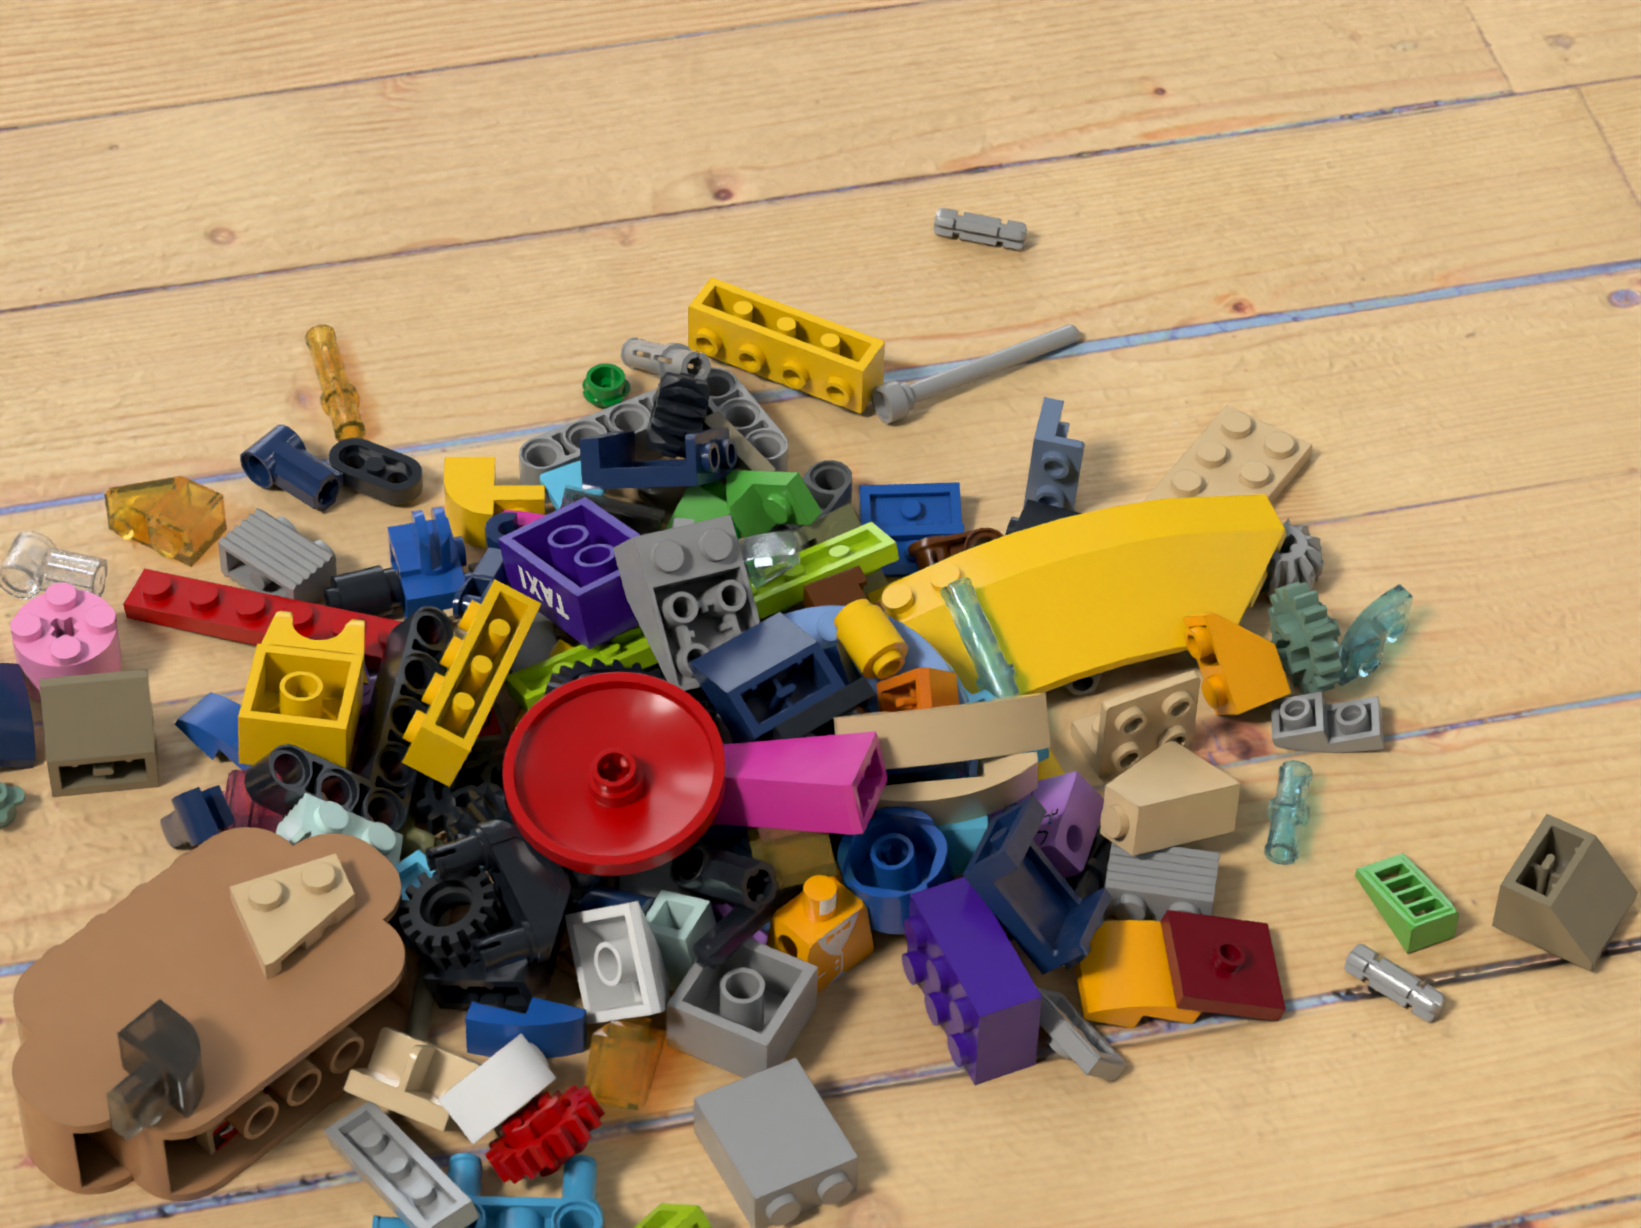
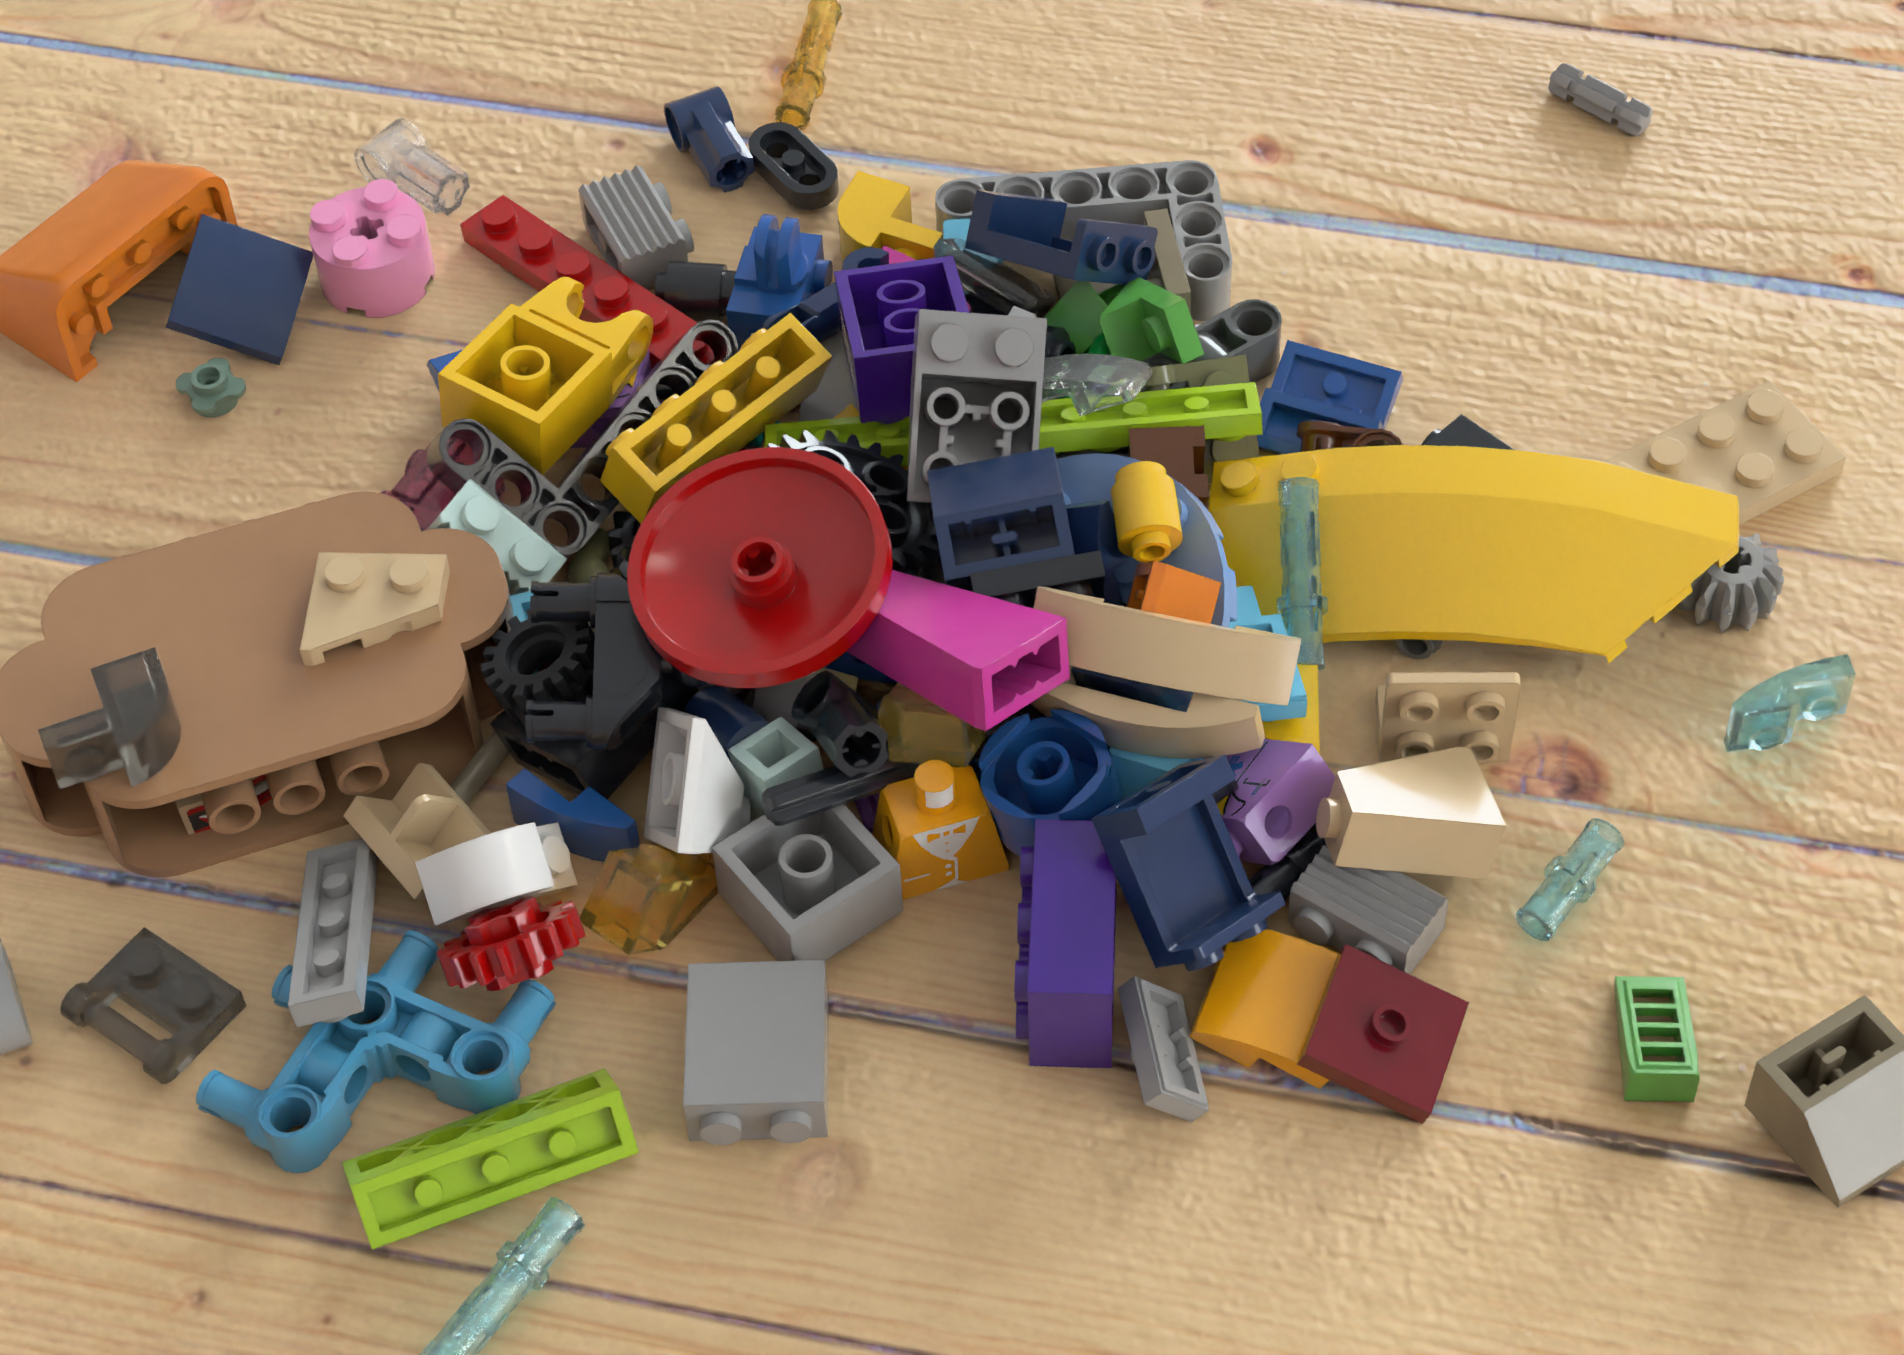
camera: 30 degrees right, 5 degrees up
(99, 732) = (339, 349): dark tan slope -> none
(168, 516) = (555, 146): clear yellow slope -> none
(196, 816) = (360, 466): dark blue piece -> none
(605, 385) = (1086, 147): green plate -> none
(676, 411) = (1117, 189): black gear -> none
(678, 352) = (1146, 145): light grey pin -> none
(785, 344) = (1297, 162): yellow brick -> none
(895, 400) = (1394, 258): light grey piece -> none
(1054, 460) = (1513, 378): sand blue bracket -> none
(1235, 664) = (1597, 687): light orange slope -> none
(1305, 638) = (1693, 680): sand green gear -> none
(1313, 726) = (1667, 789): light grey slope -> none
(1395, 982) = (1584, 1131): light grey axle -> none

